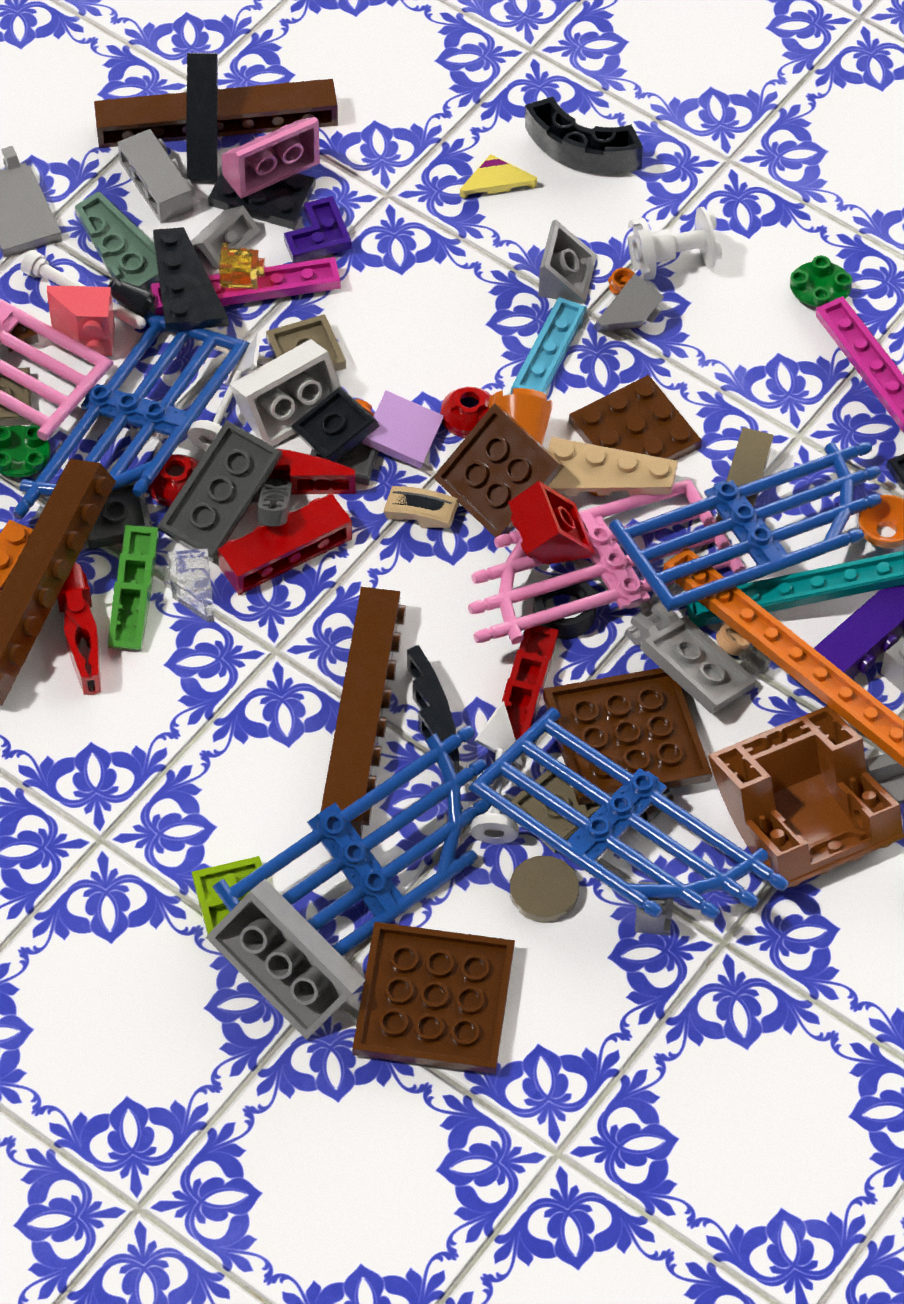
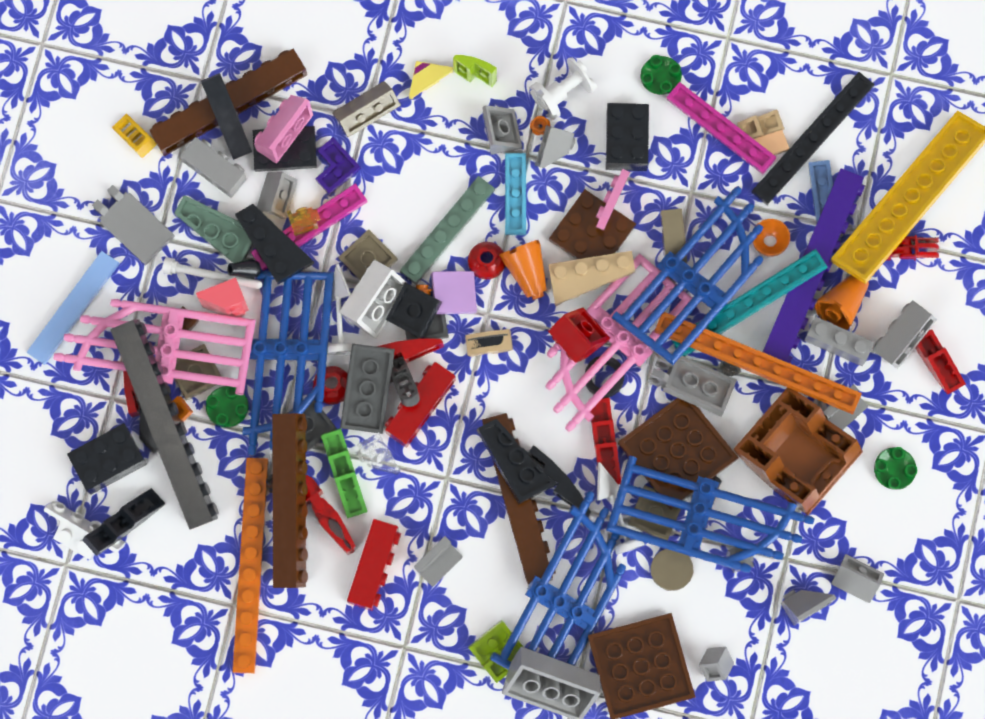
camera: 20 degrees left, 20 degrees up
(75, 112) = (143, 144): none -> yellow slope
(111, 714) = (373, 565): none -> red brick
(206, 745) = (438, 561): none -> light grey panel
(378, 653) = (516, 466): none -> black wing
(396, 185) = (366, 108): none -> dark tan panel
(433, 357) = (447, 230): none -> sand green plate
(495, 467) = (527, 304): reddish brown plate -> none
(550, 1037) = (716, 664): none -> light grey panel
(564, 182) = (471, 67): none -> lime slope
(586, 149) = (470, 34): black brick -> none
(680, 392) = (611, 198): none -> bright pink plate
(727, 1008) = (804, 604): none -> light grey slope
(731, 641) = (710, 361): light nougat tile -> none
(737, 333) = (627, 136): none -> black brick
(820, 1008) = (858, 578): none -> light grey panel

